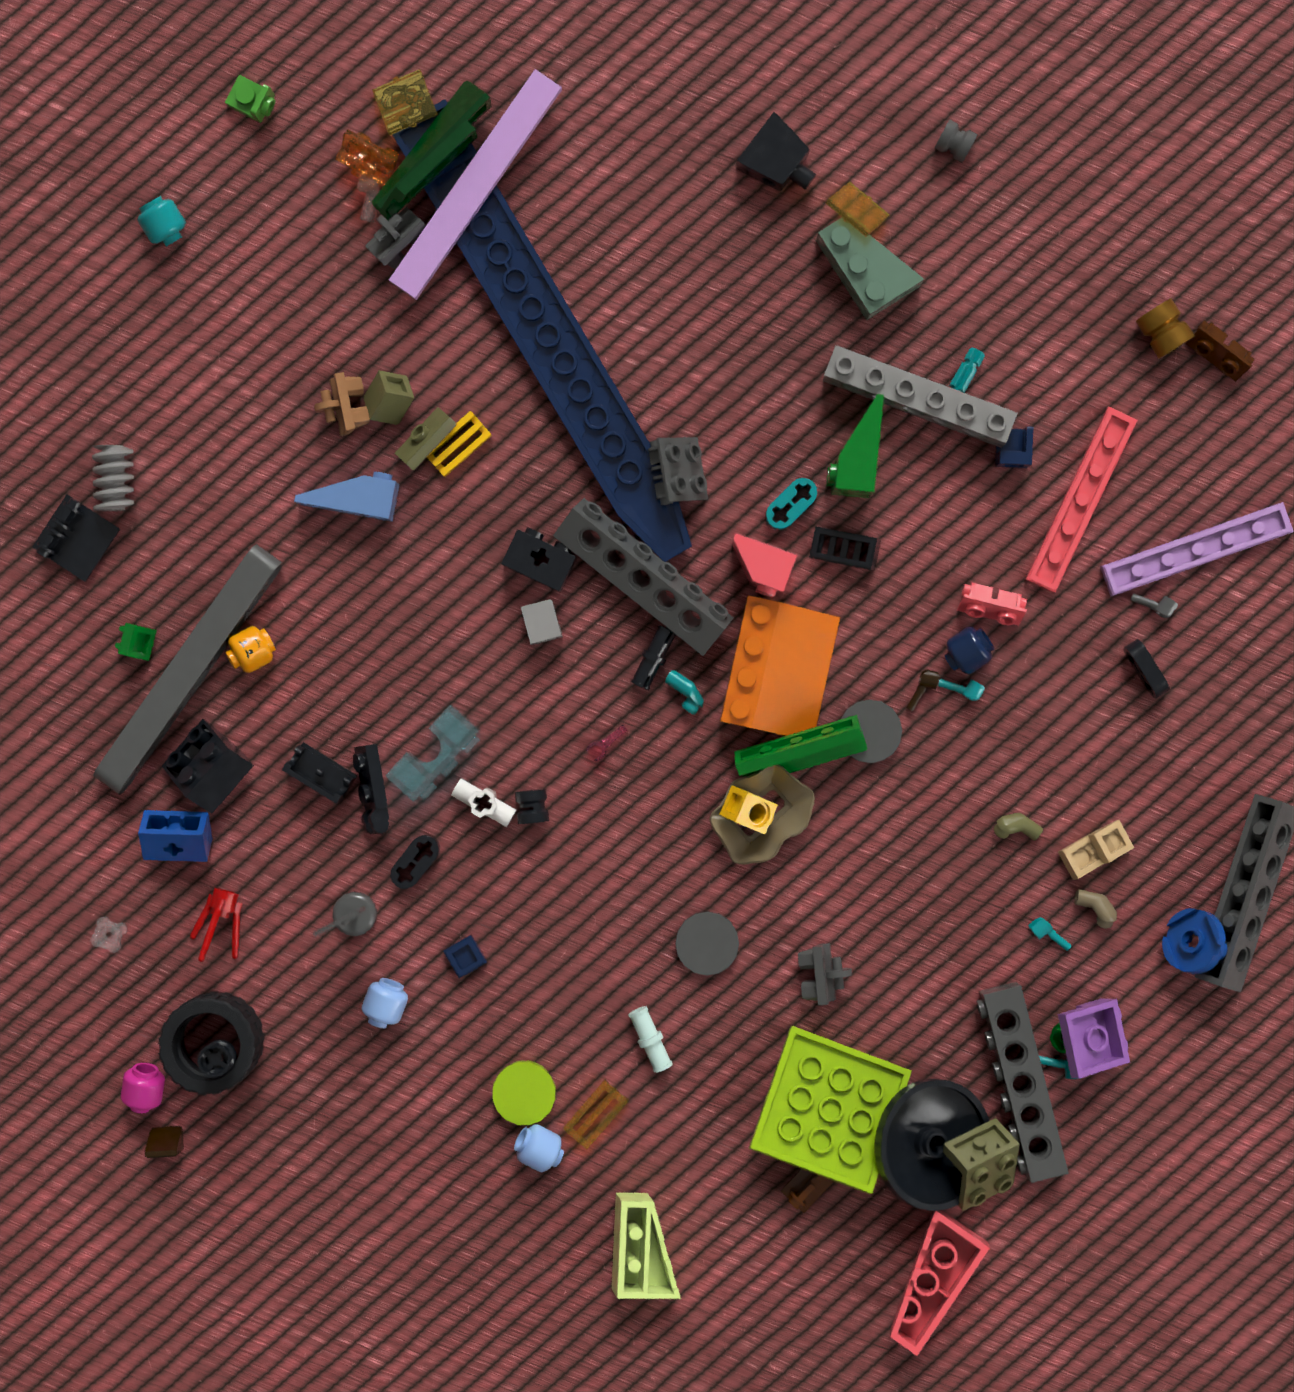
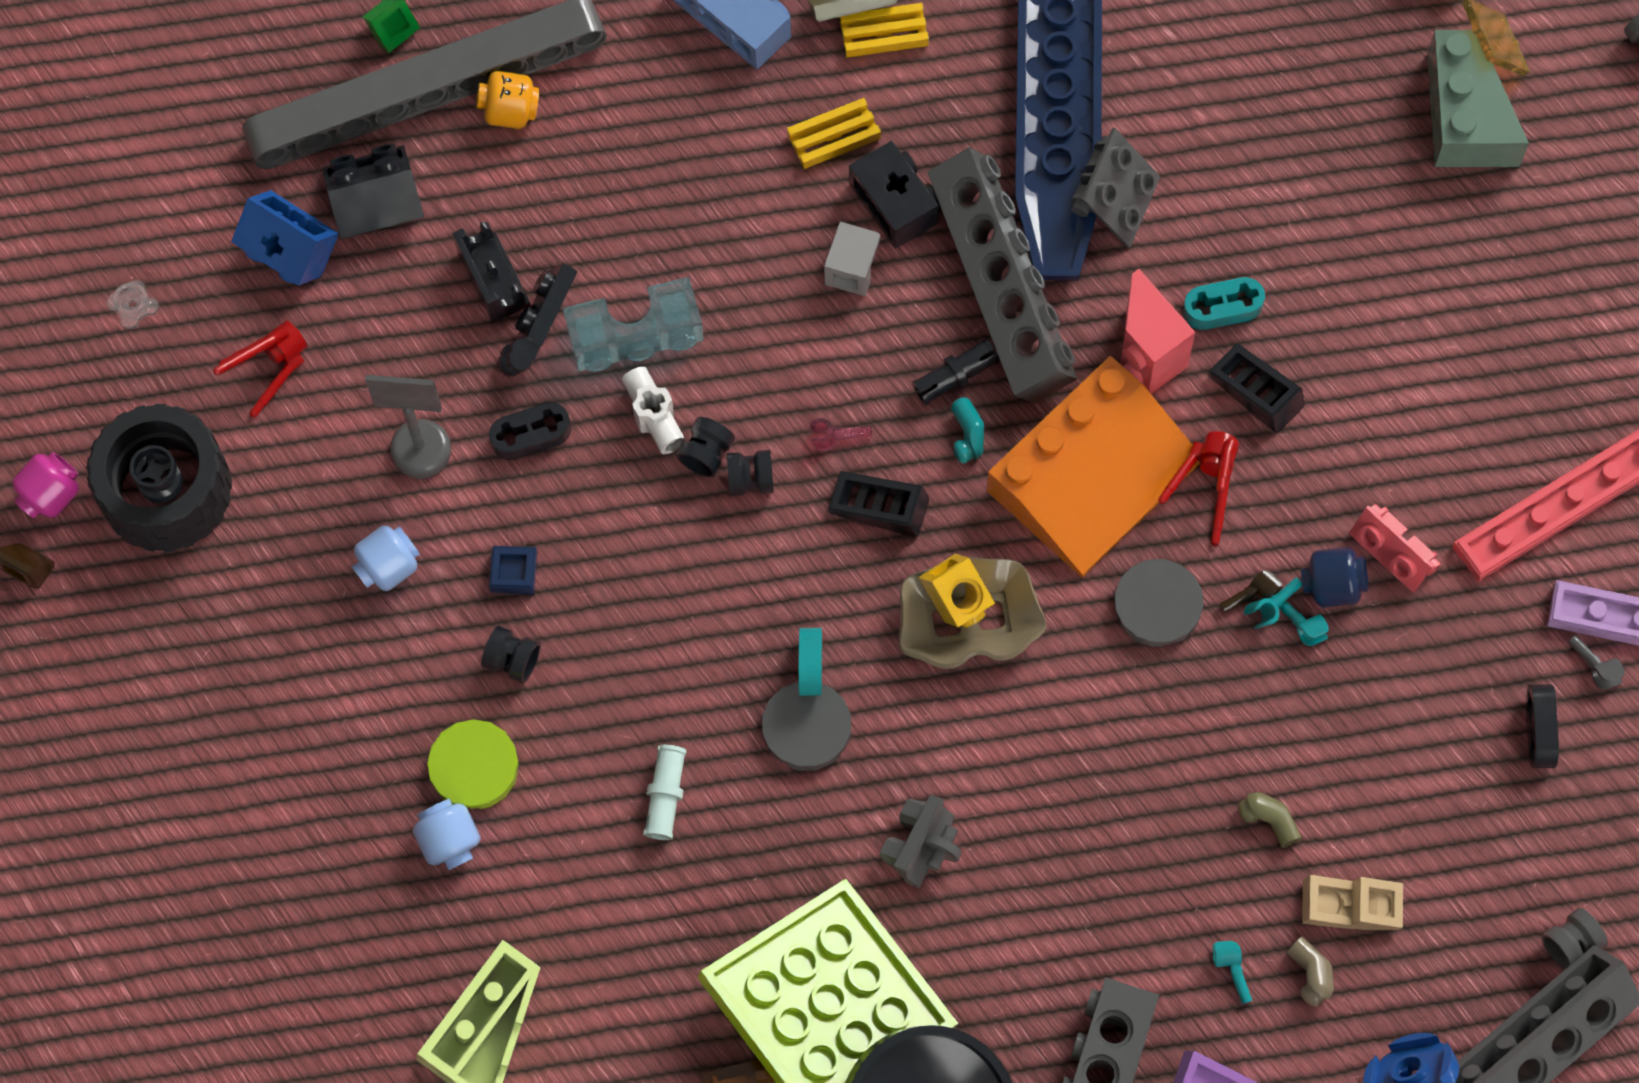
camera: 35 degrees right, 20 degrees down
(487, 515) = (828, 120): none -> yellow tile
(501, 1013) = (510, 654): none -> black wheel
(564, 810) = (739, 473): none -> black wheel
(613, 1093) = (546, 858): clear yellow tile -> none
(686, 766) = (893, 521): none -> black slope
(686, 907) = (810, 661): none -> teal beam
(804, 748) = (1071, 570): green panel -> none
(851, 616) = (1216, 460): none -> red plant
(856, 465) = (1334, 283): green slope -> none
(920, 396) = (1447, 269): light grey brick -> none
(940, 694) = (1270, 606): none -> teal hand
(967, 370) = (1511, 286): teal axle -> none
(1017, 450) = (1525, 392): dark blue panel -> none
(1239, 793) = (1573, 938): none -> dark grey wheel

